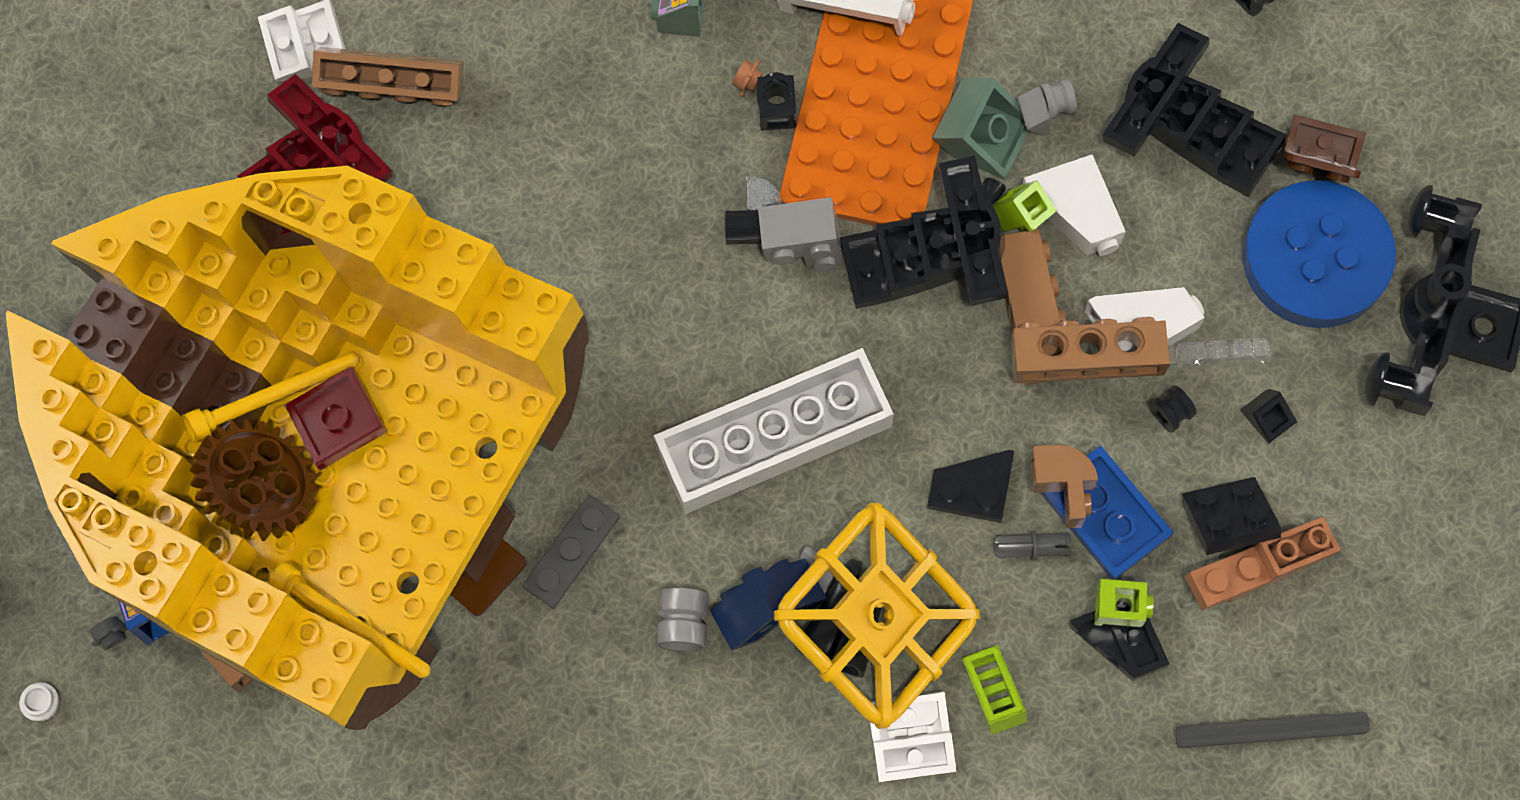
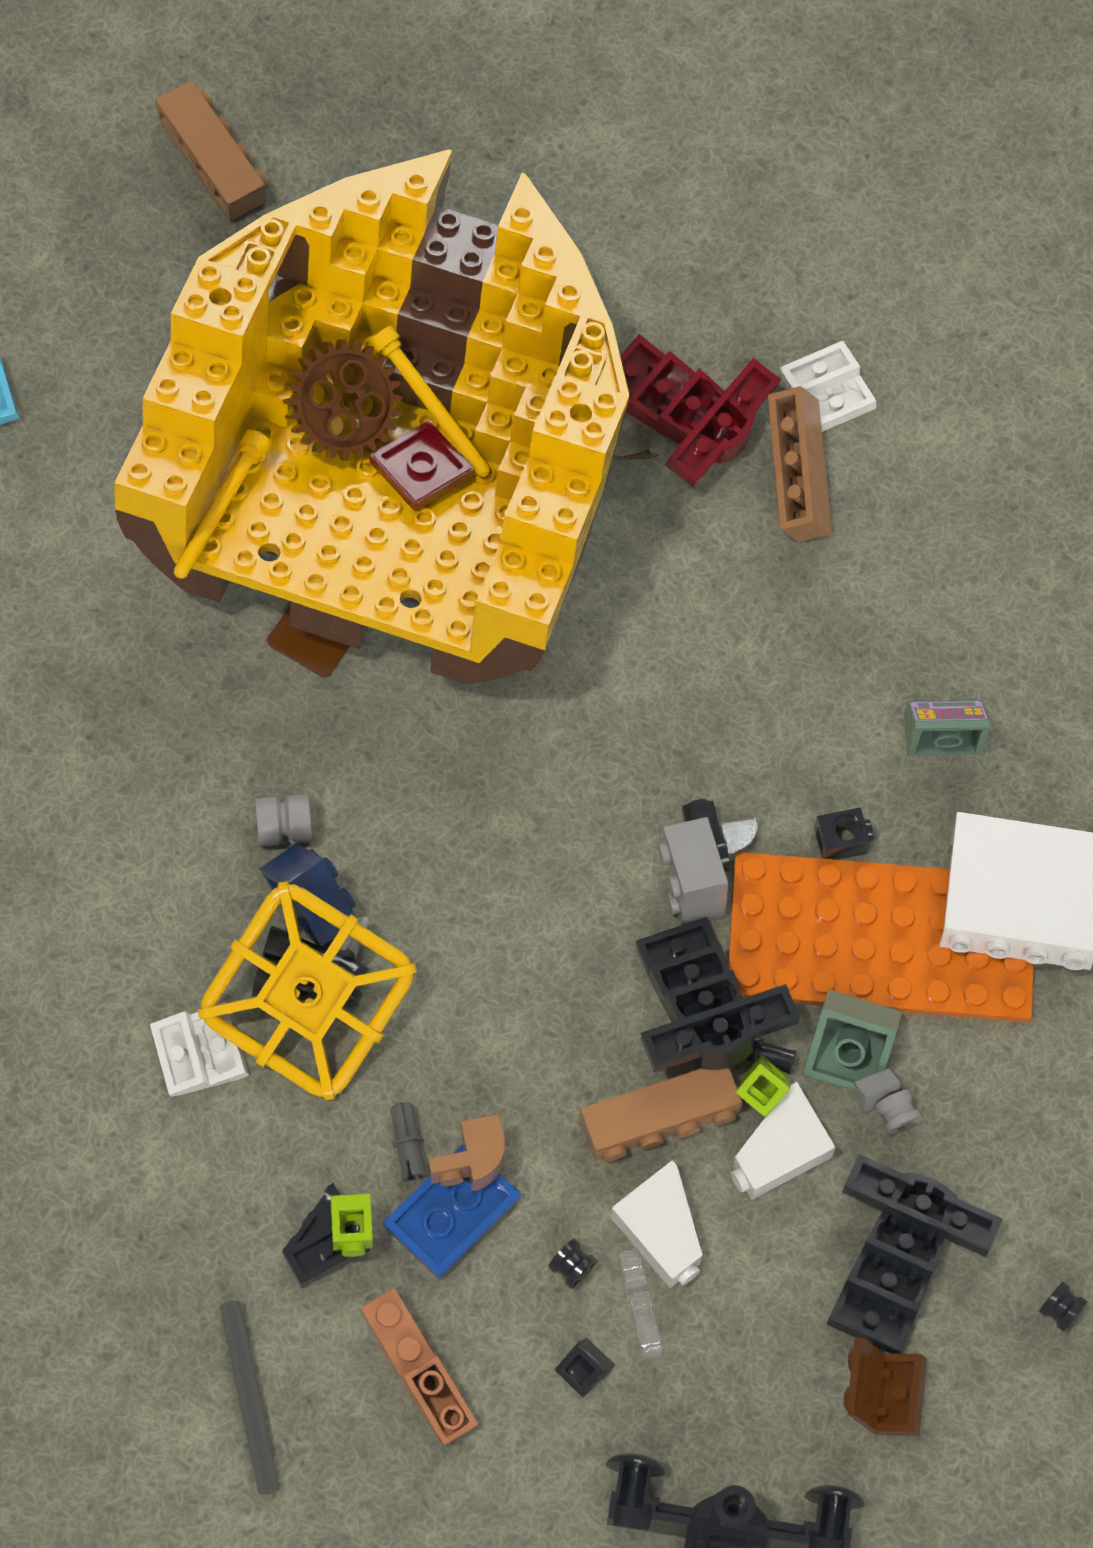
camera: 75 degrees right, 5 degrees down
(39, 701) = (135, 285): white plate -> none
(571, 551) = (341, 714): dark grey plate -> none
(747, 76) = (868, 801): nougat plate -> none
(774, 430) = (486, 876): white brick -> none
(973, 487) = (462, 1079): black wing -> none
(1005, 719) = (235, 1146): lime slope -> none
(1033, 365) = (614, 1219): medium nougat brick -> none
(1231, 515) = (464, 1329): black plate -> none
(1319, 254) = (770, 1399): blue brick -> none

